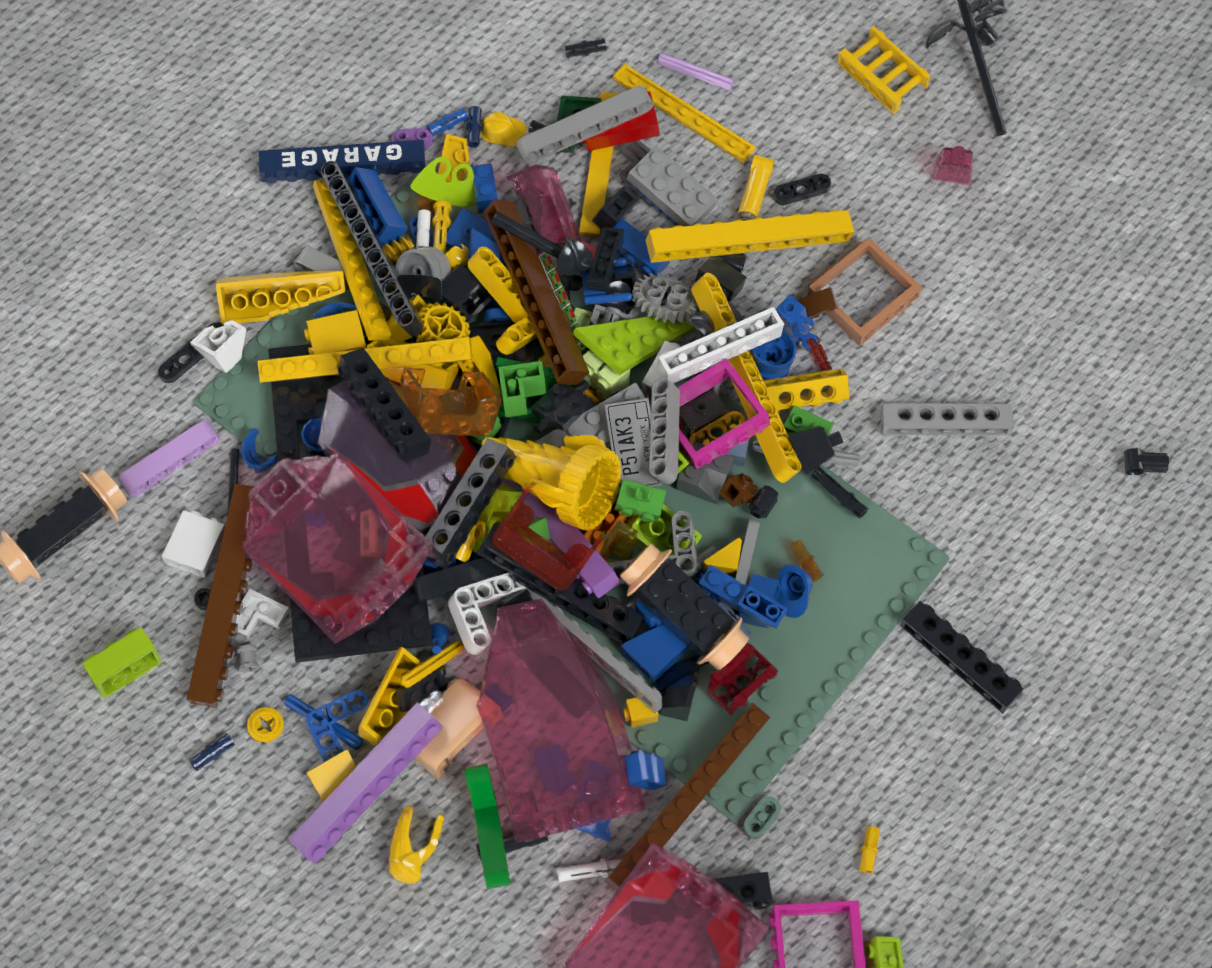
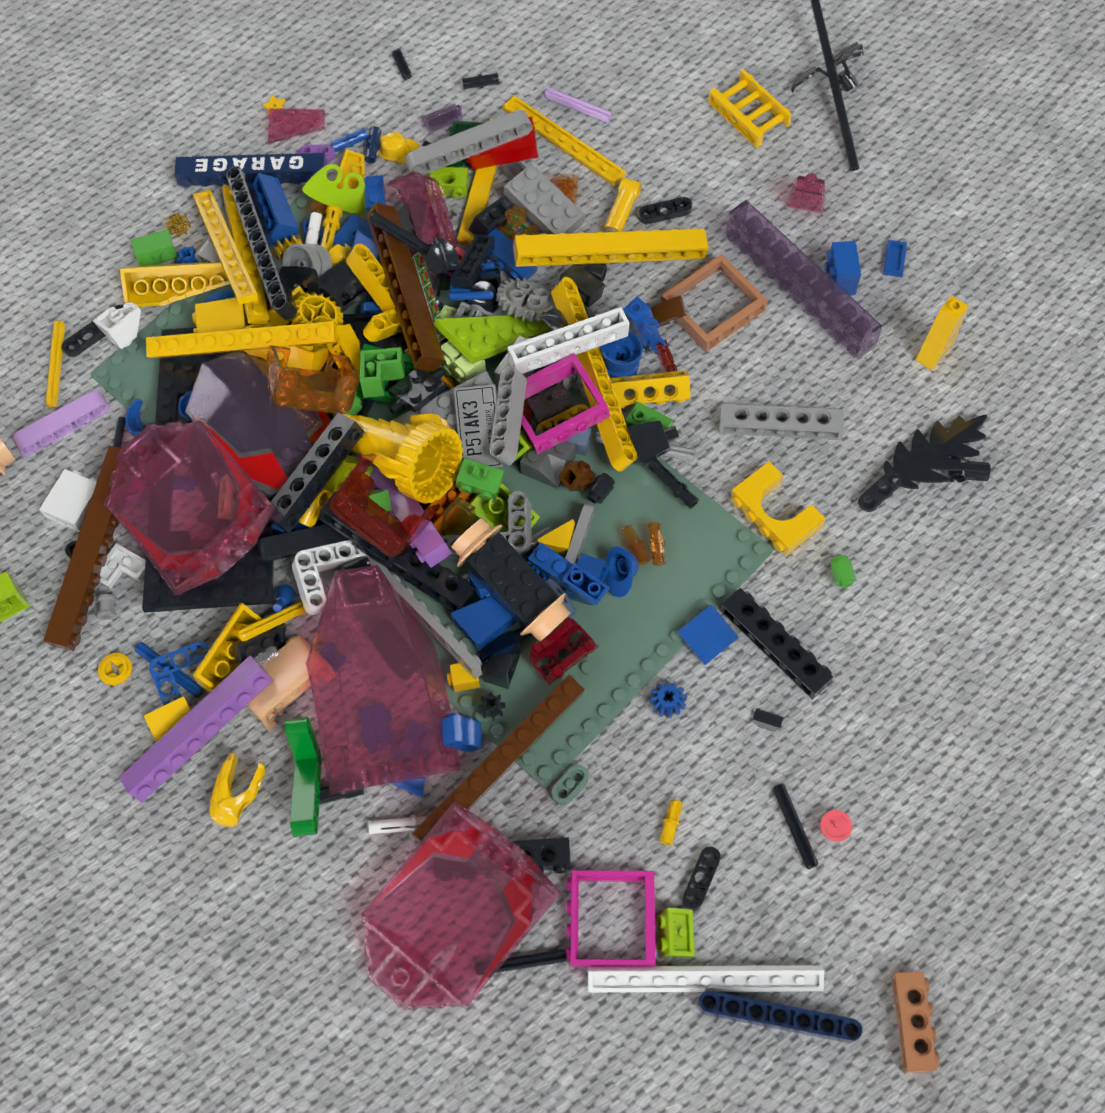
camera: 10 degrees right, 0 degrees up
(152, 392) = (55, 364): none -> yellow axle
(211, 752) = (61, 691): dark blue pin -> none
(247, 256) = (154, 248): none -> bright green brick
(269, 228) = (178, 224): none -> clear yellow gear
(284, 263) = (186, 255): none -> blue gear
(331, 254) = (225, 247): none -> yellow plate
(358, 90) = (274, 101): none -> yellow plate
(382, 104) = (294, 122): none -> clear pink wing
(384, 405) = (247, 379): black brick -> none
(495, 31) = (402, 64): none -> black axle
(548, 92) = (442, 118): none -> clear purple panel
(572, 161) = (453, 181): none -> lime brick
(644, 207) = (516, 219): none -> clear orange plant
(676, 746) = (491, 700): none -> black gear
(695, 165) = (568, 185): none -> clear orange slope
(828, 558) = (656, 543): none -> clear orange pin
(865, 722) = (668, 707): none -> blue gear
(890, 651) = (708, 634): none -> blue slope
(914, 901) = (713, 865): none -> black beam
(957, 262) = (803, 280): none -> clear purple brick
(958, 738) = (767, 720): none -> black piece
(960, 541) = (784, 534): none -> yellow arch
(996, 845) = (795, 826): none -> black axle
(999, 248) = (844, 265): none -> blue brick
(1024, 577) = (843, 571): none -> bright green brick
(1038, 842) = (836, 825): none -> coral piece
(1052, 233) = (895, 258): none -> blue tile
(1101, 452) = (924, 458): none -> black plant
(1109, 316) = (942, 333): none -> yellow slope

